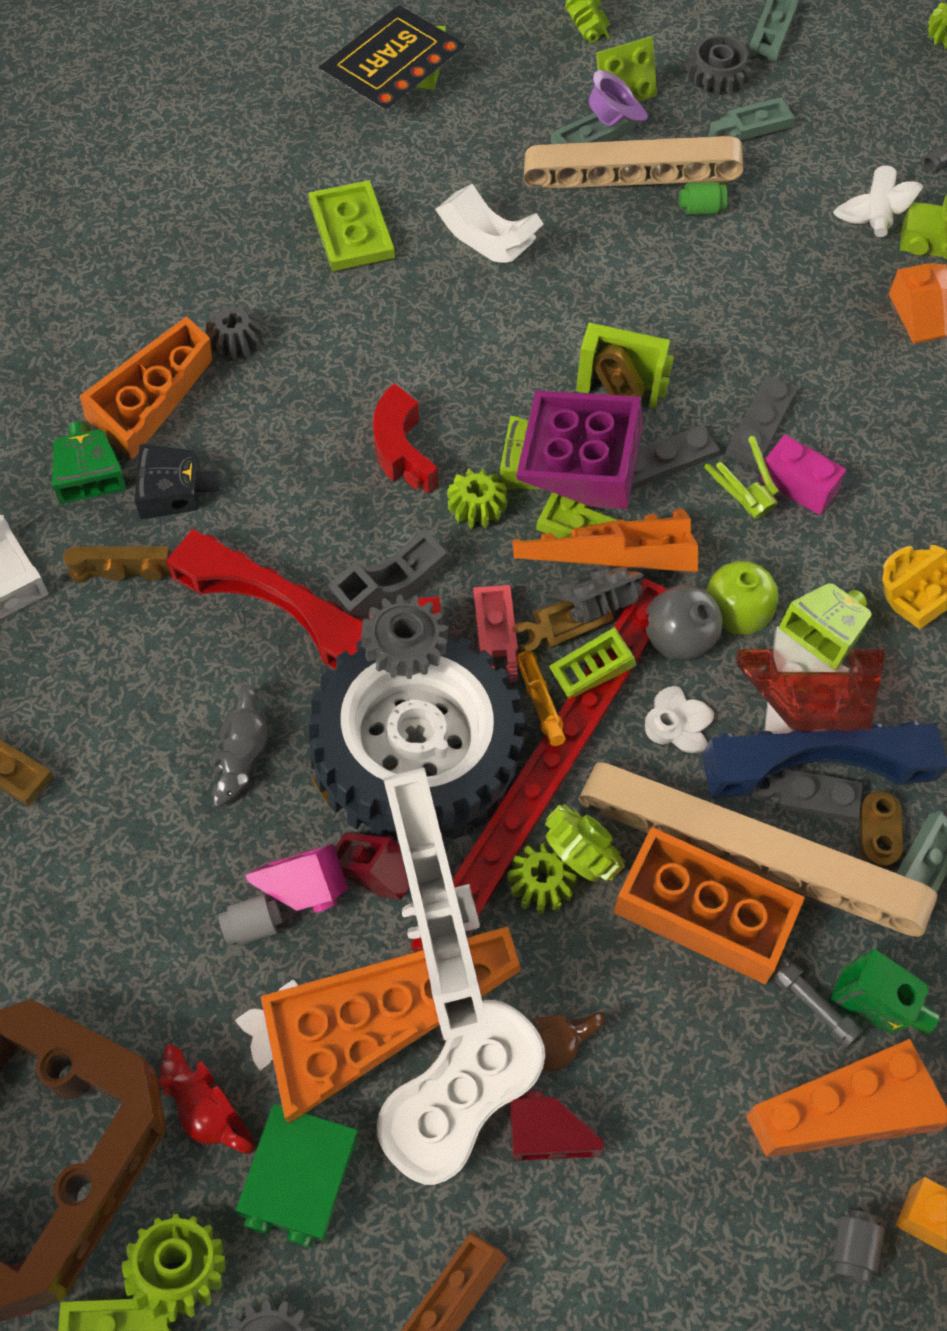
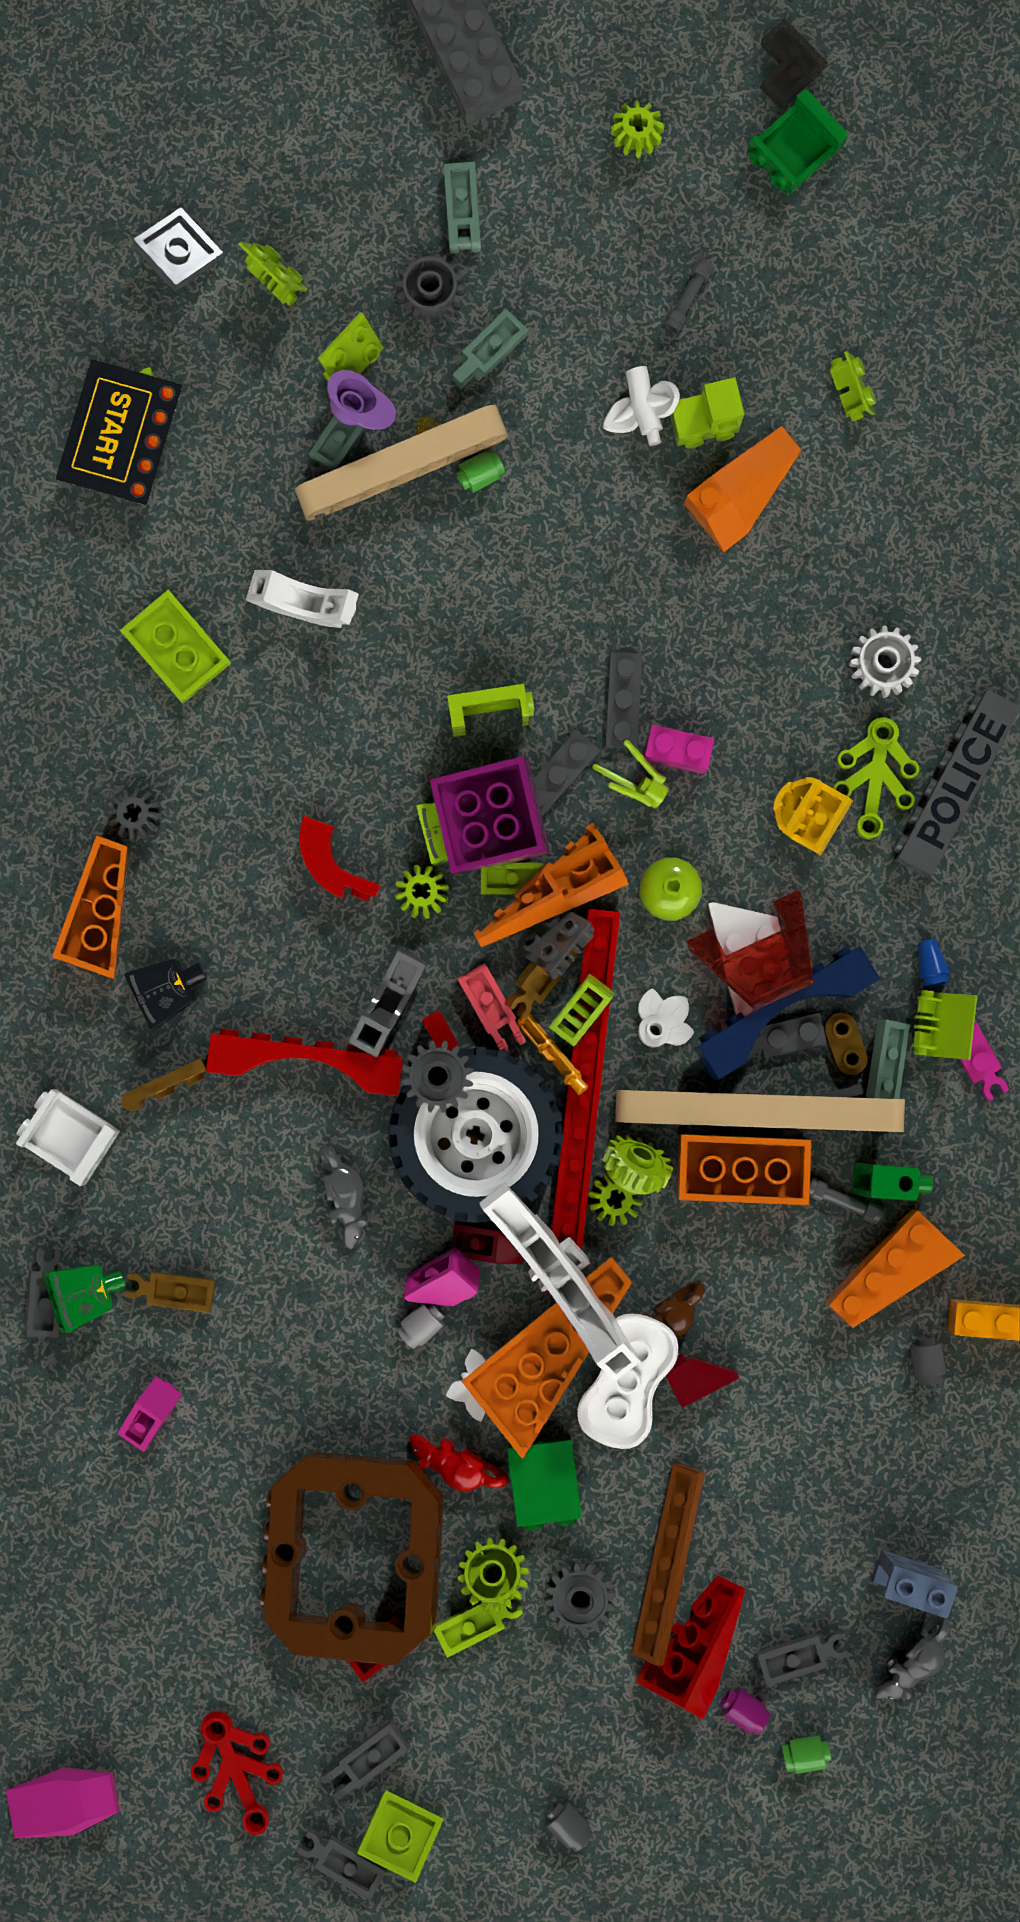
camera: 25 degrees left, 25 degrees up
(84, 465) = (84, 1005): green torso -> none
(618, 370) = (489, 720): pearl gold plate -> none
(684, 622) = (635, 938): dark grey cylinder -> none
(827, 622) = (750, 886): lime torso -> none

